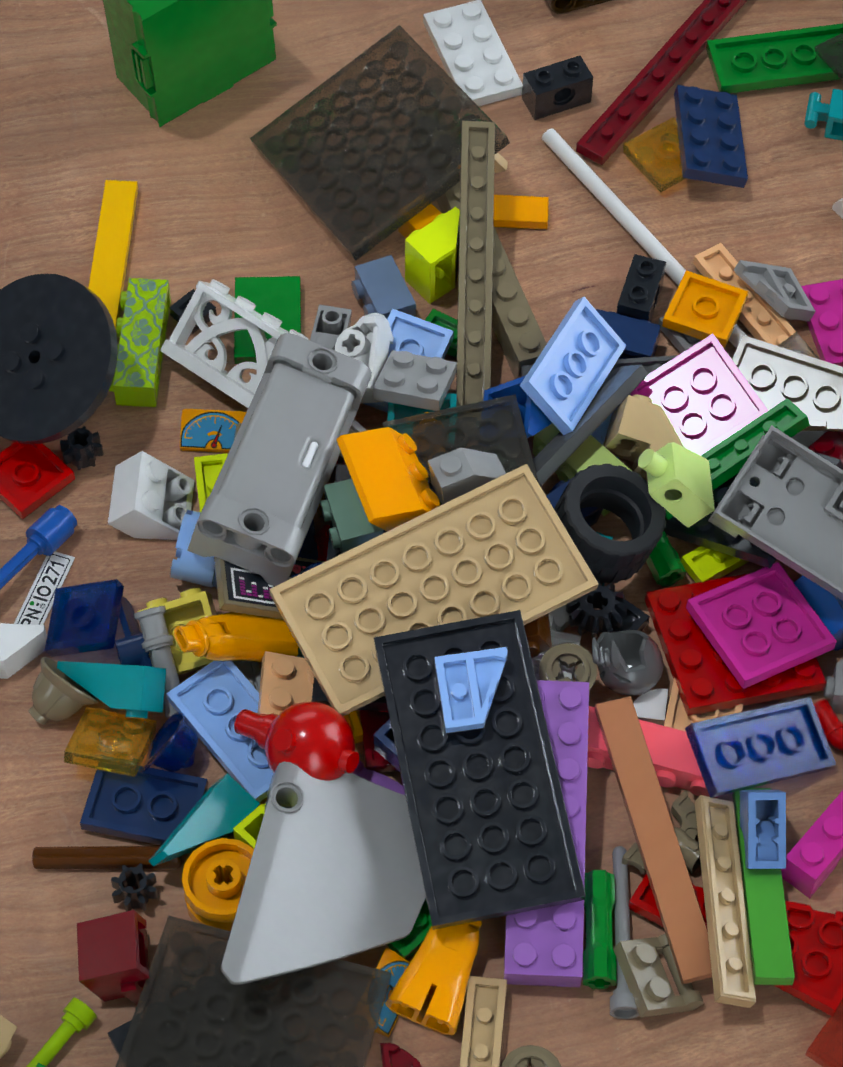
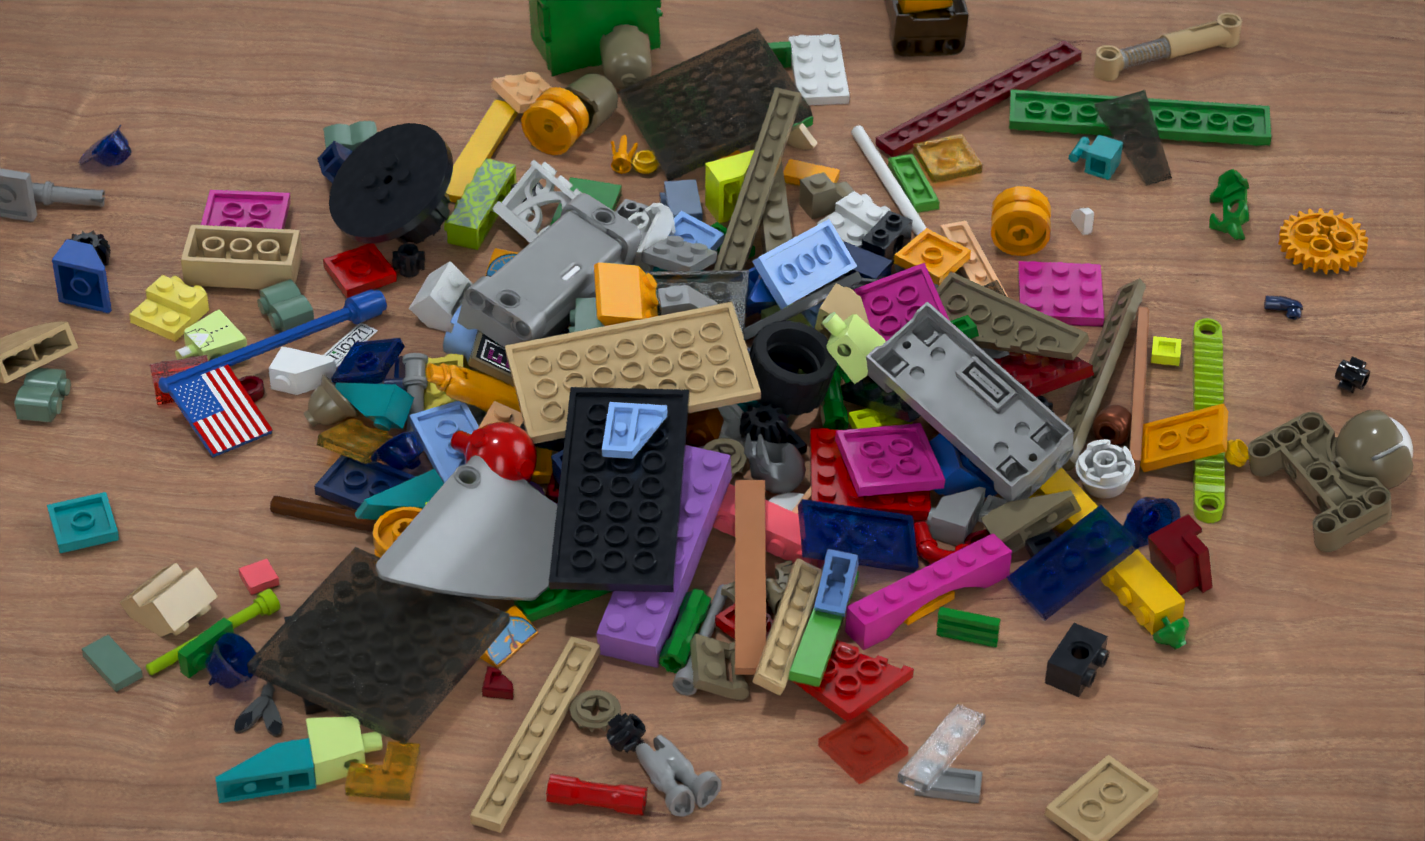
camera: 15 degrees right, 15 degrees down
(53, 974) = (258, 576): none -> coral tile
(114, 956) = (304, 563): dark red plate -> none
(134, 877) = (339, 533): black gear -> none
(141, 162) = (520, 89): none -> light nougat plate
(195, 204) = (555, 121): none -> light orange wheel
(222, 169) = (598, 97): none -> dark tan cylinder
(247, 90) = (625, 56): none -> dark tan cylinder
(289, 238) = (622, 161): none -> light orange piece
(315, 235) = (644, 162): none -> yellow plate
(427, 39) = (783, 52): none -> green plate
(437, 978) = (545, 631): light orange piece -> none
(545, 240) = (820, 194): none -> dark tan arch
(557, 87) = (875, 99): black brick -> none
(592, 270) = (855, 217): none -> white plate
(638, 196) = (913, 182): none -> bright green tile
(710, 136) = (986, 150): dark blue plate -> none
(778, 288) = (998, 256): light grey wing -> none
(789, 233) = (1020, 221): none -> light orange wheel

